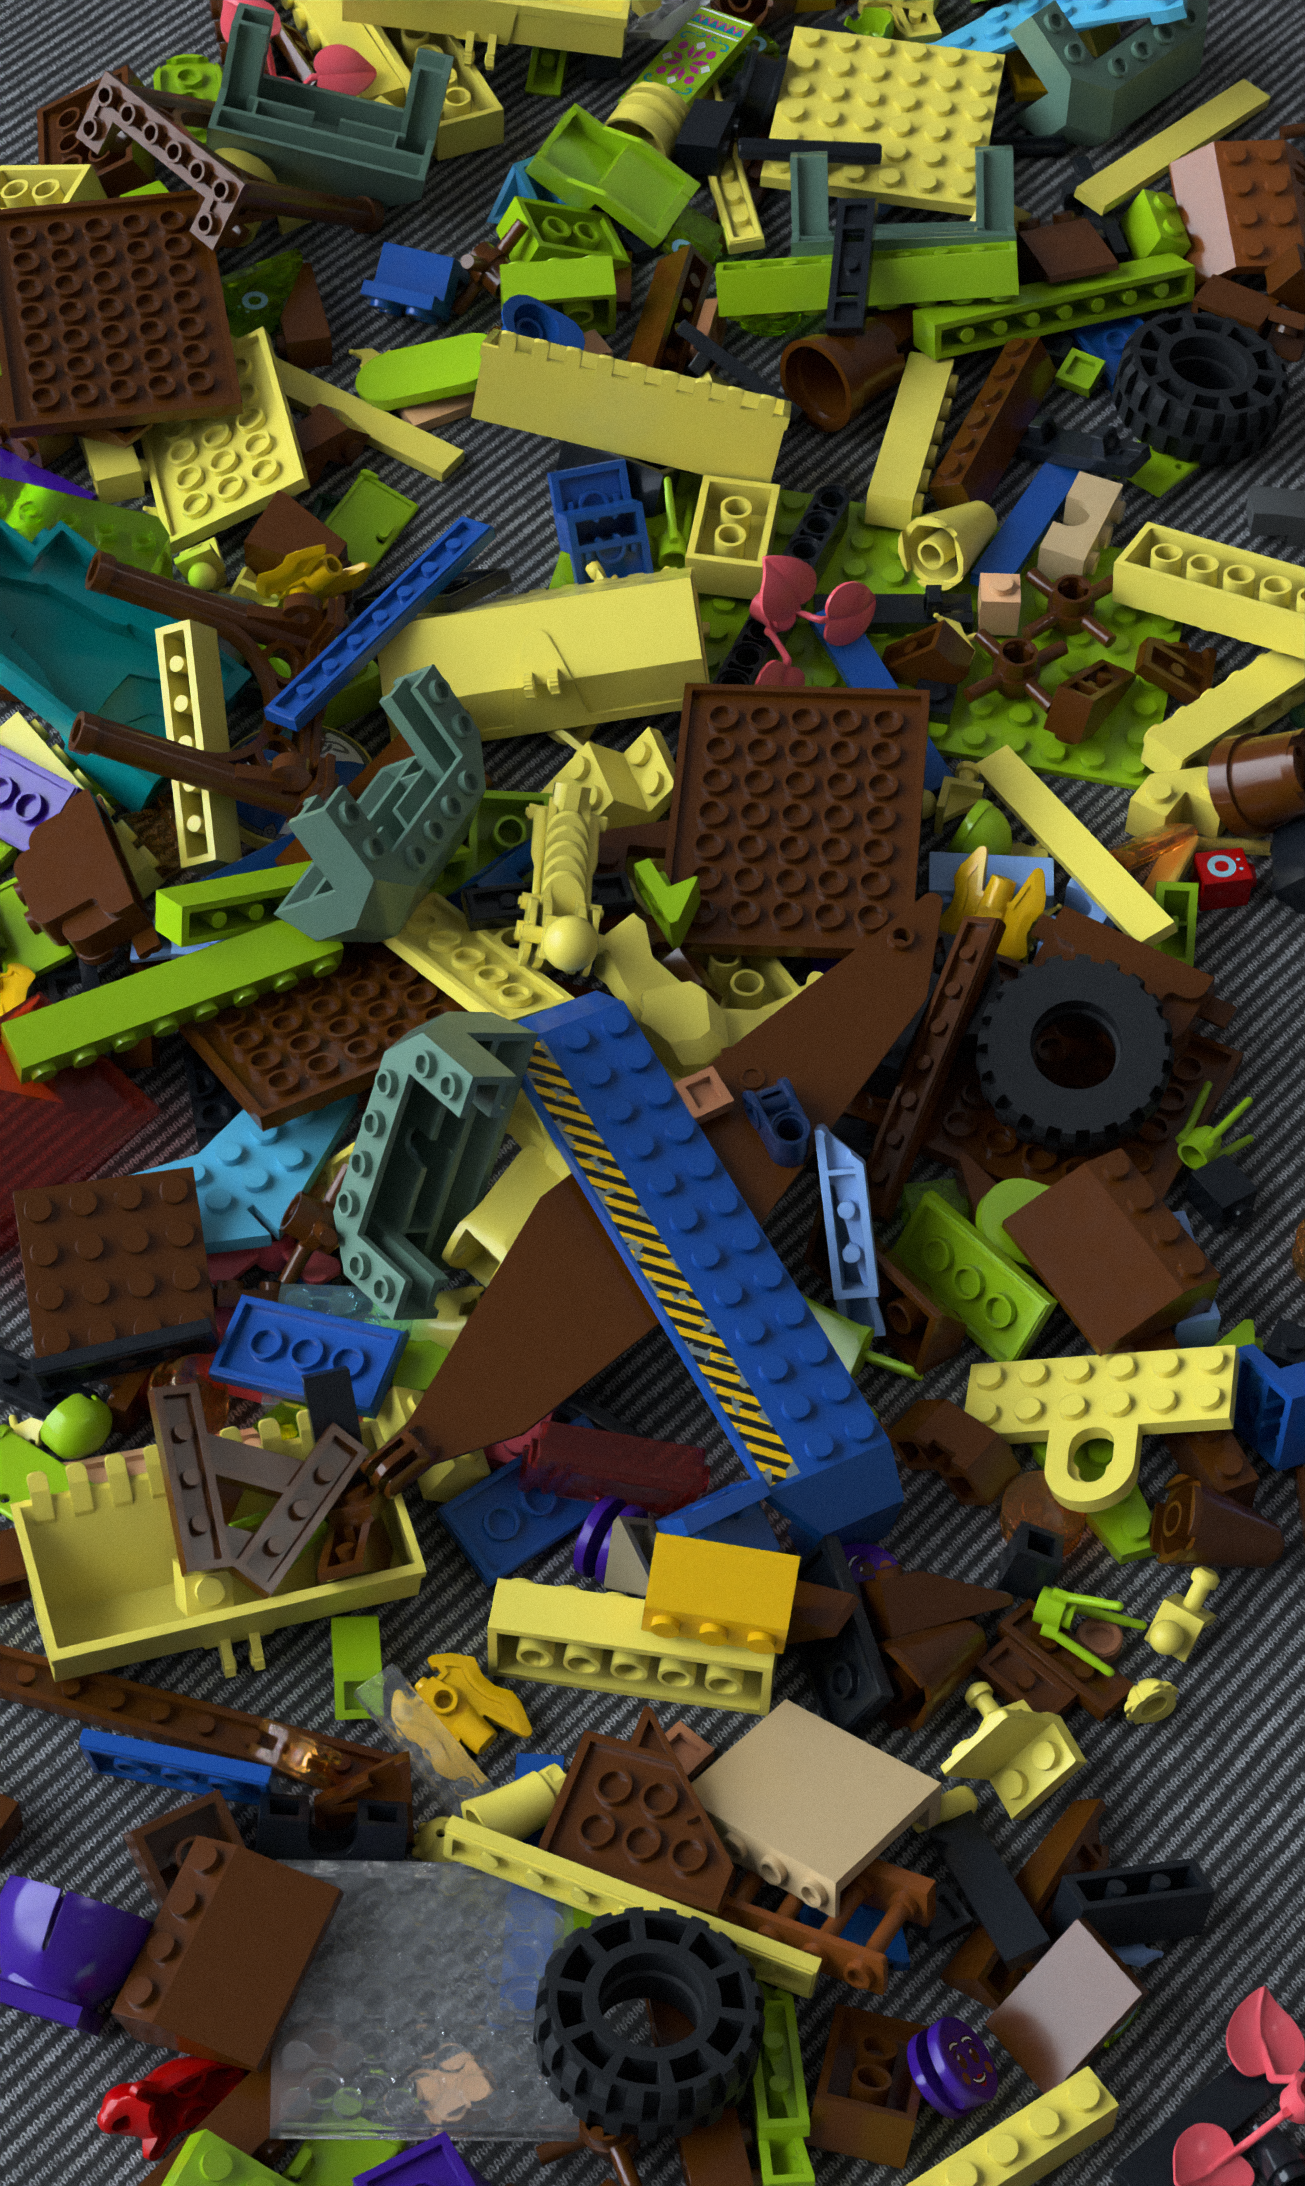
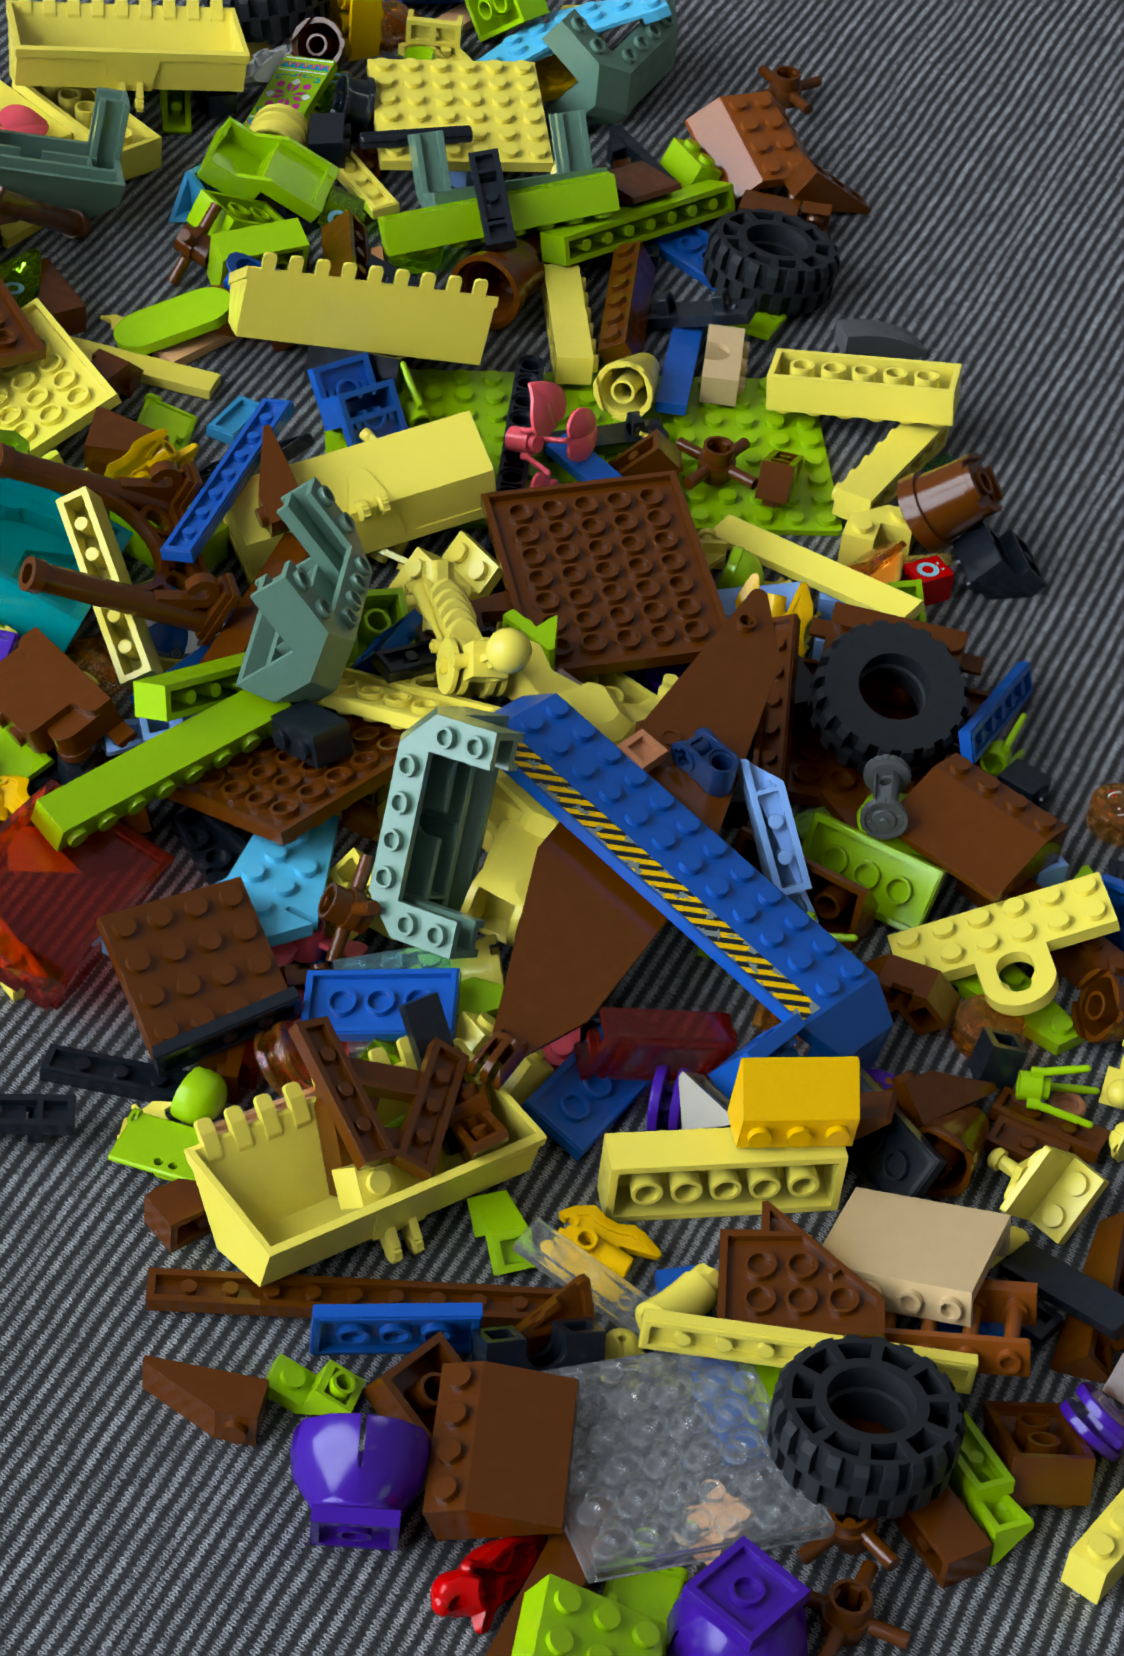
camera: 20 degrees left, 10 degrees down
(68, 1821) = (311, 1394): none -> lime slope
(297, 1755) = (496, 1290): clear orange head -> none
(349, 988) = (312, 734): none -> black brick
(414, 283) = (137, 263): blue bracket -> none
(431, 634) = (274, 482): none -> reddish brown slope
(473, 503) = (231, 420): none -> dark azure tile
(731, 535) = (466, 385): light yellow brick -> none
(999, 603) = (685, 418): light nougat brick -> none
(999, 1217) = (884, 815): none -> dark grey hose
(1070, 606) = (739, 414): reddish brown bar -> none
(1080, 372) = (672, 266): lime plate -> none
(1153, 157) = (672, 116): light yellow tile -> none
(1176, 668) = (837, 451): reddish brown wing -> none
(1217, 1088) = (996, 712): none -> blue tile

